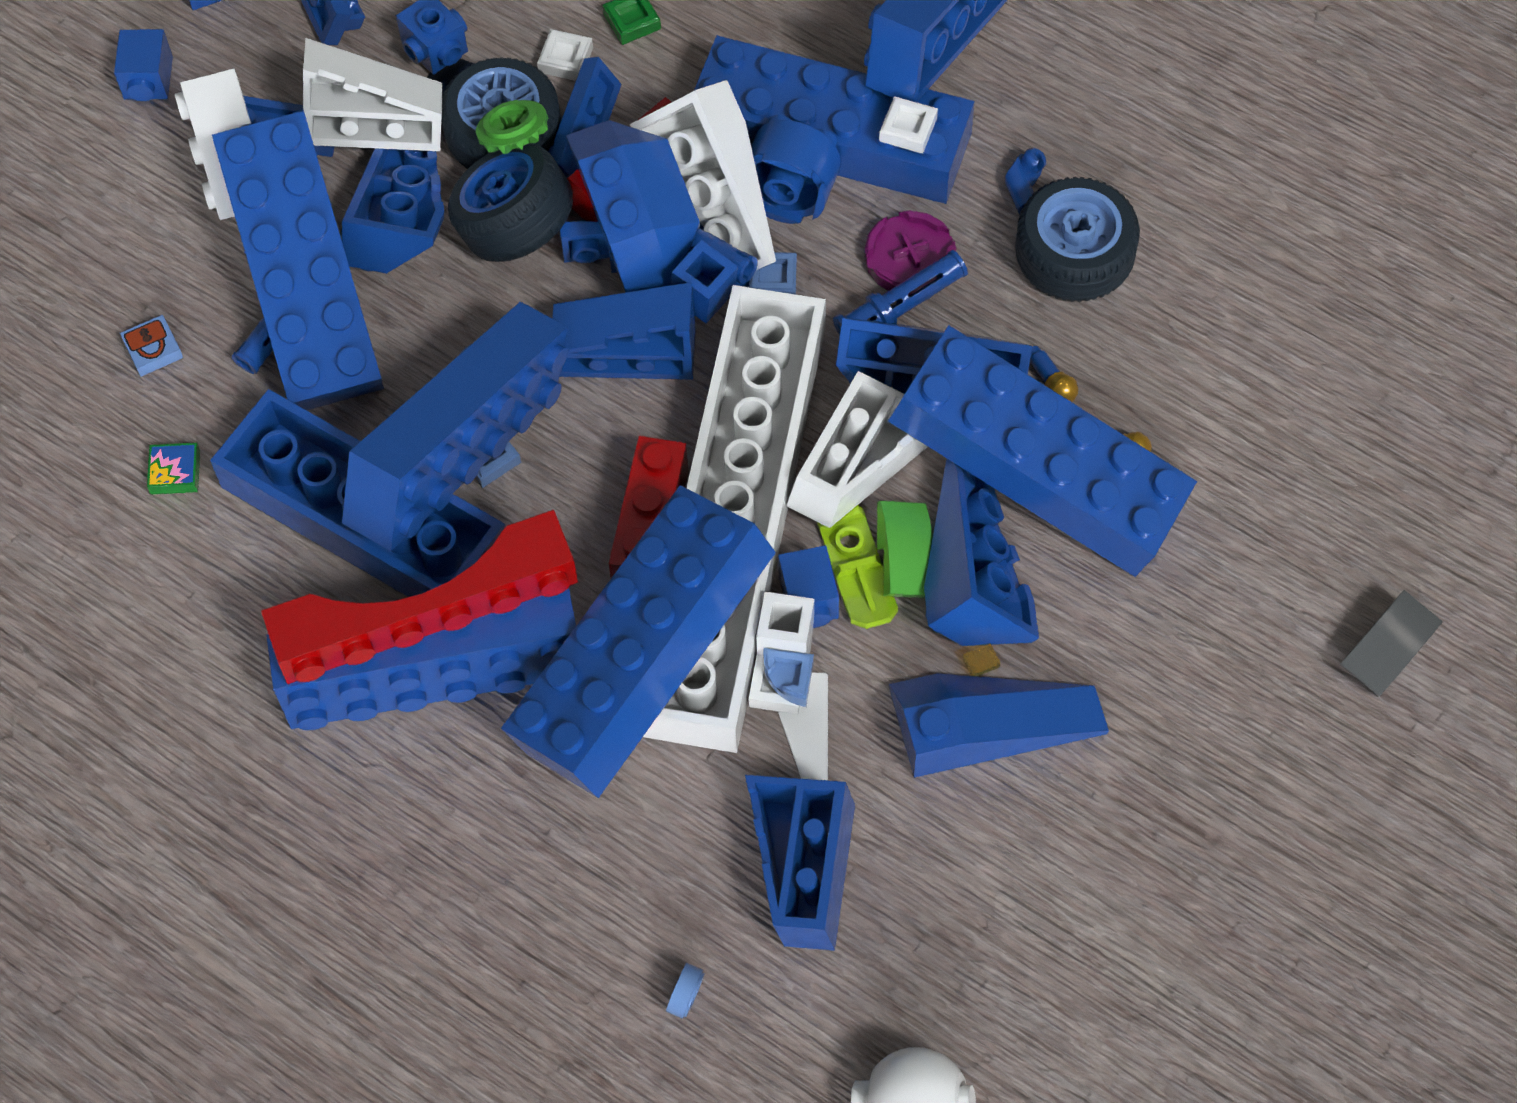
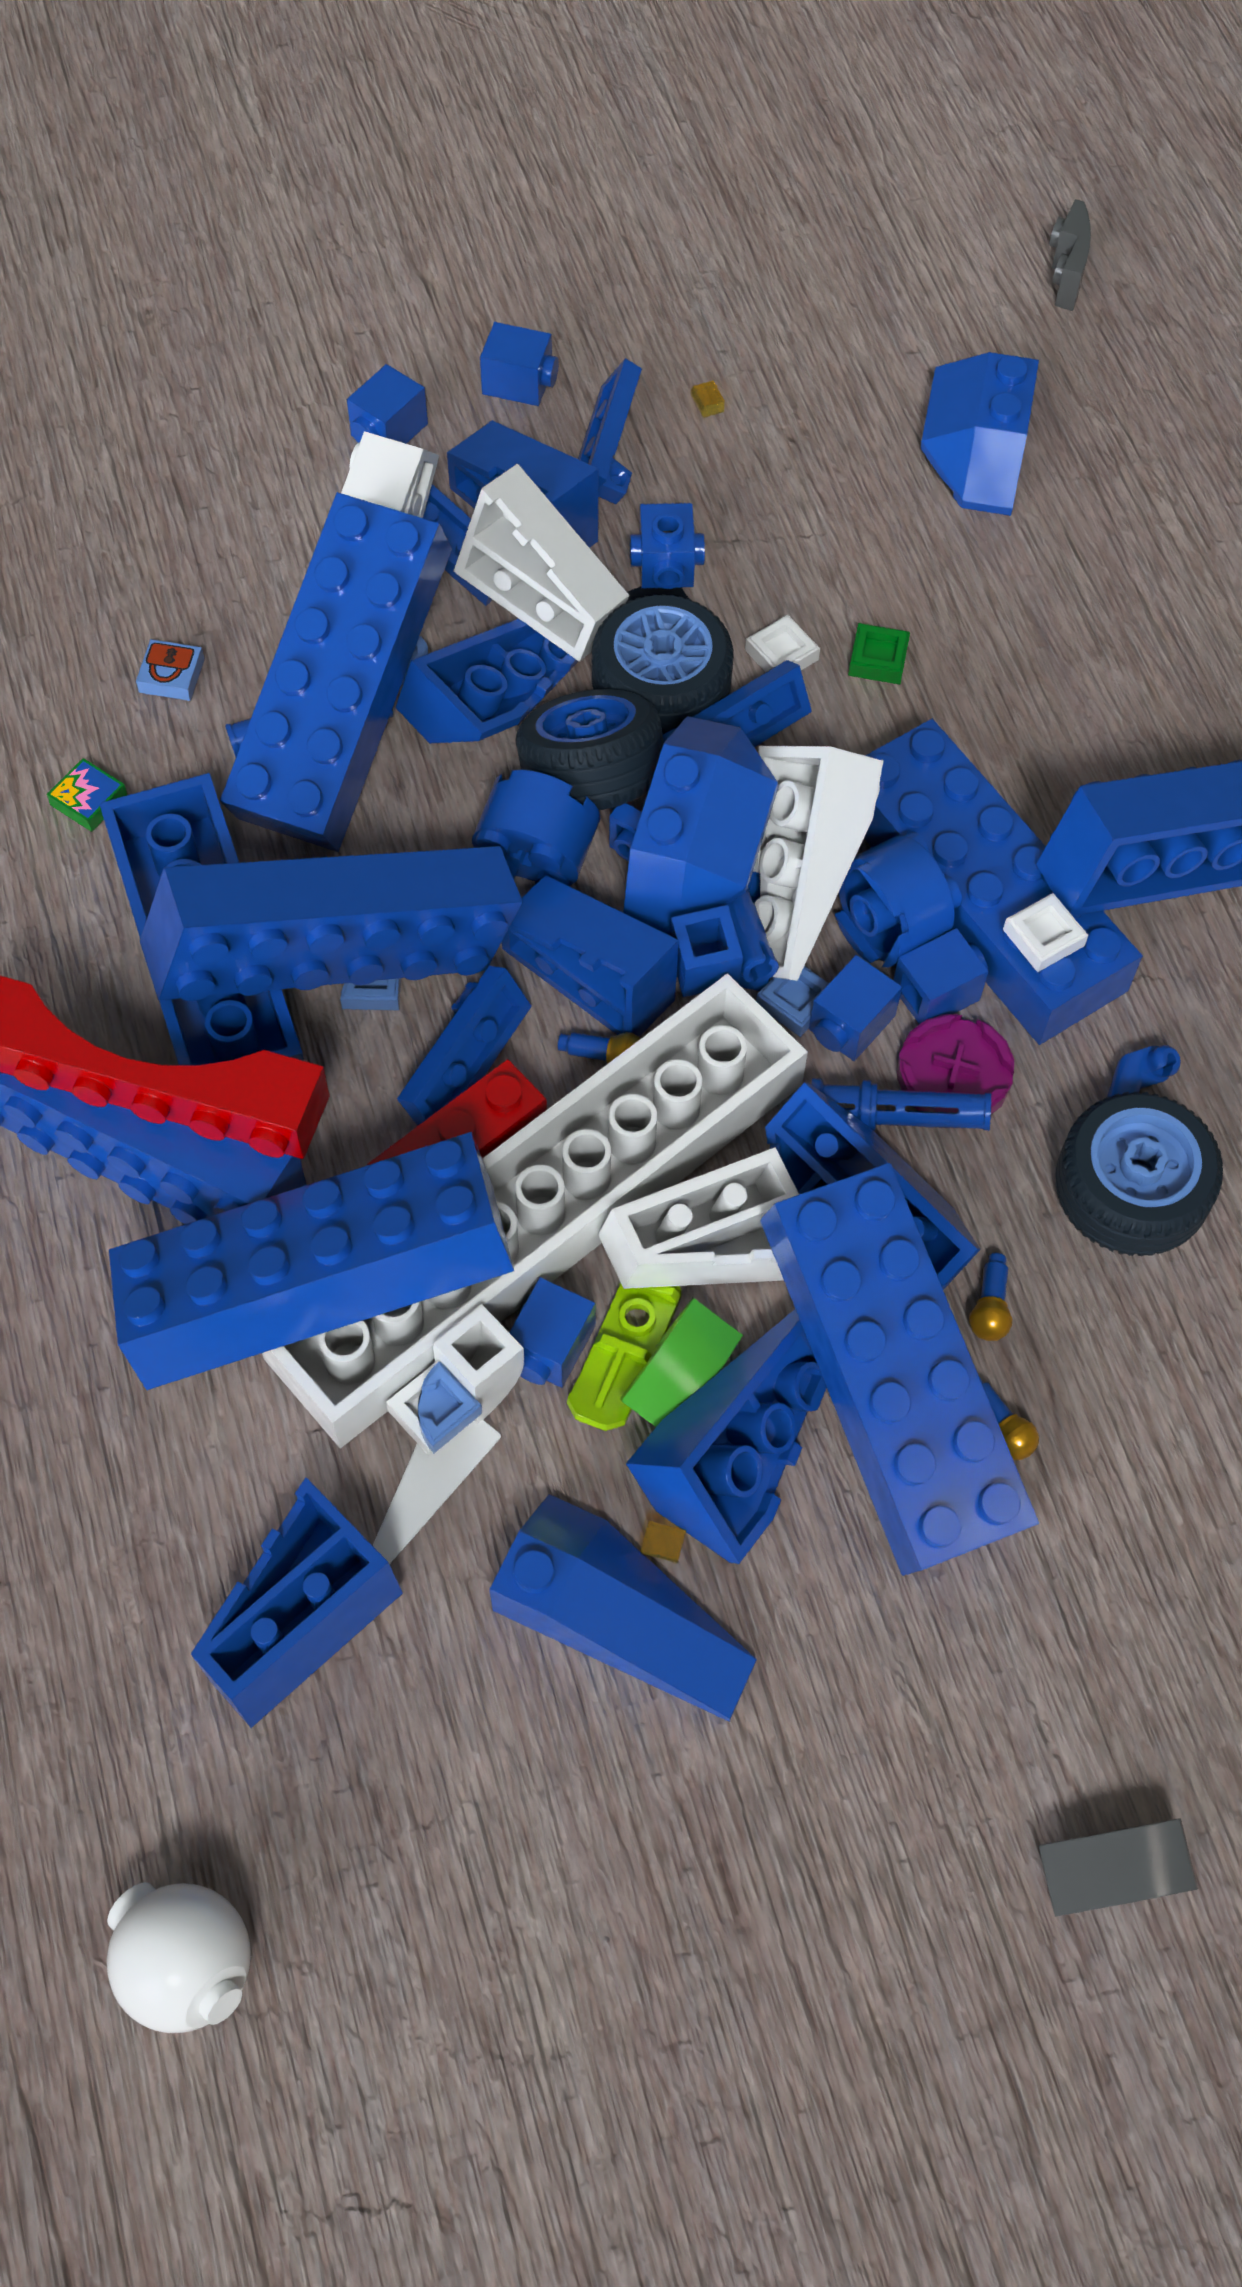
camera: 35 degrees right, 0 degrees up
(271, 50) = (560, 477): none -> blue wedge
(512, 125) = (645, 674): bright green gear -> none
(517, 271) = (537, 826): none -> blue brick
(590, 424) = (469, 1045): none -> blue hinge
(685, 991) = (72, 1651): medium blue tile -> none
(693, 387) = (595, 1046): none -> blue piece
(819, 256) = (854, 1008): none -> blue brick
(856, 201) = (941, 976): none -> blue brick

